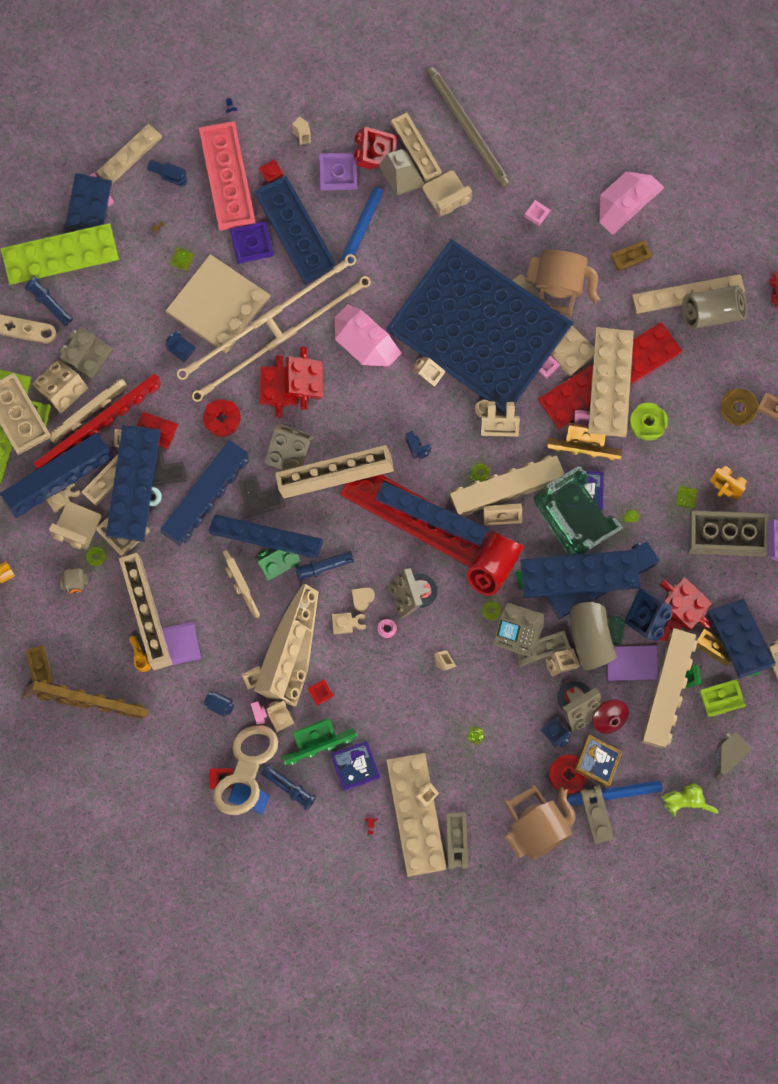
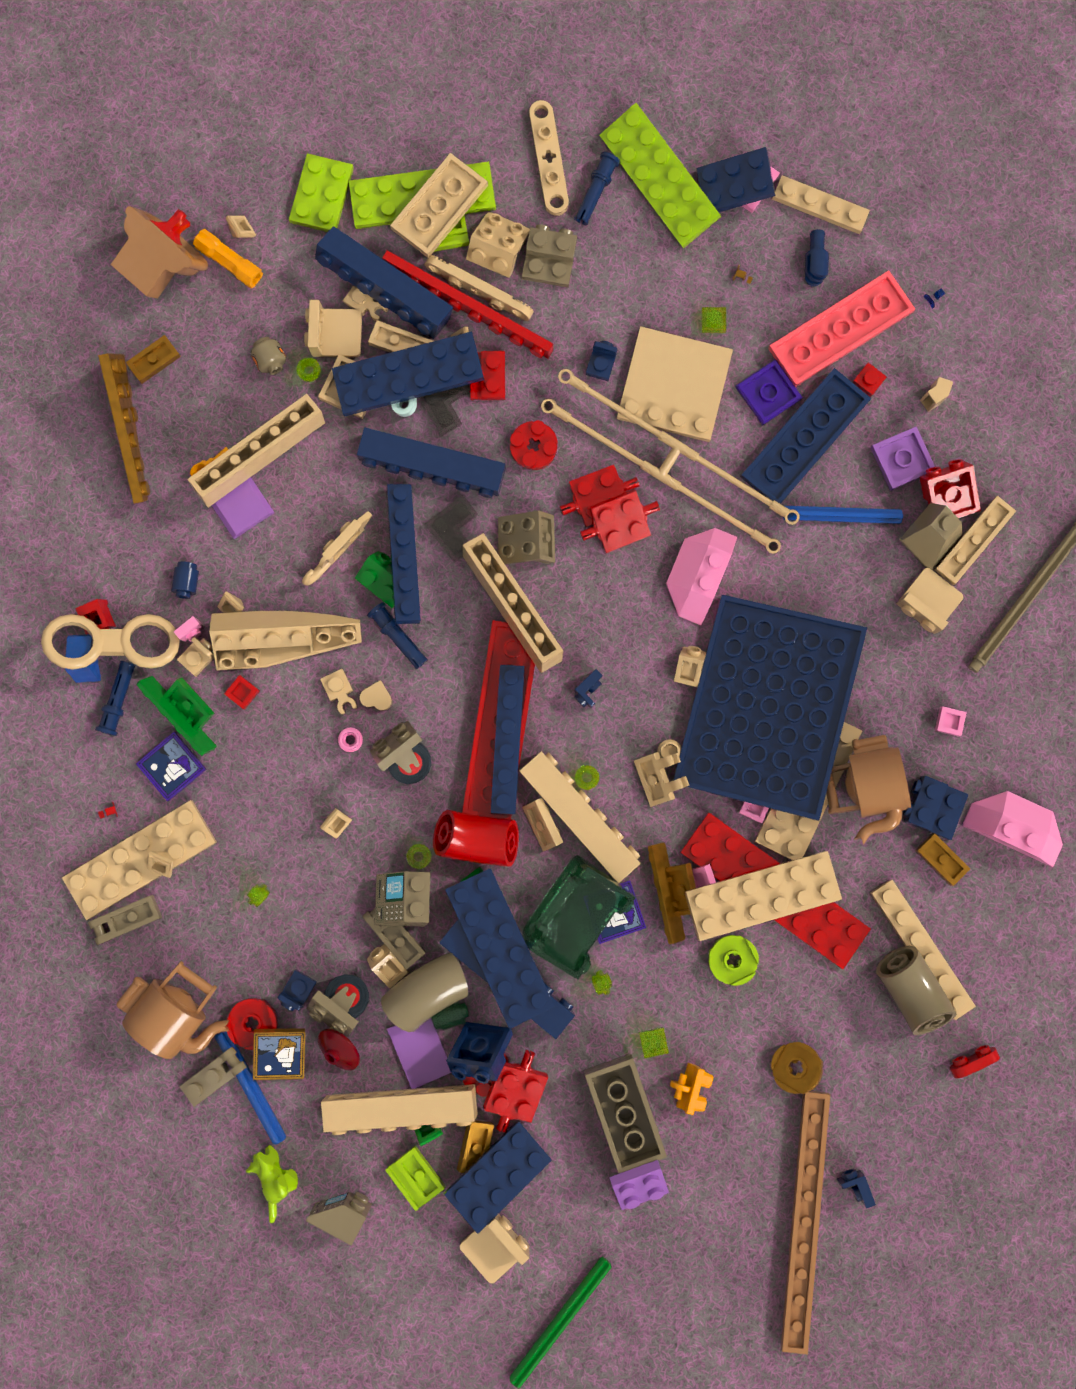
camera: 70 degrees right, 10 degrees up
(593, 245) = (935, 807): none -> dark blue plate

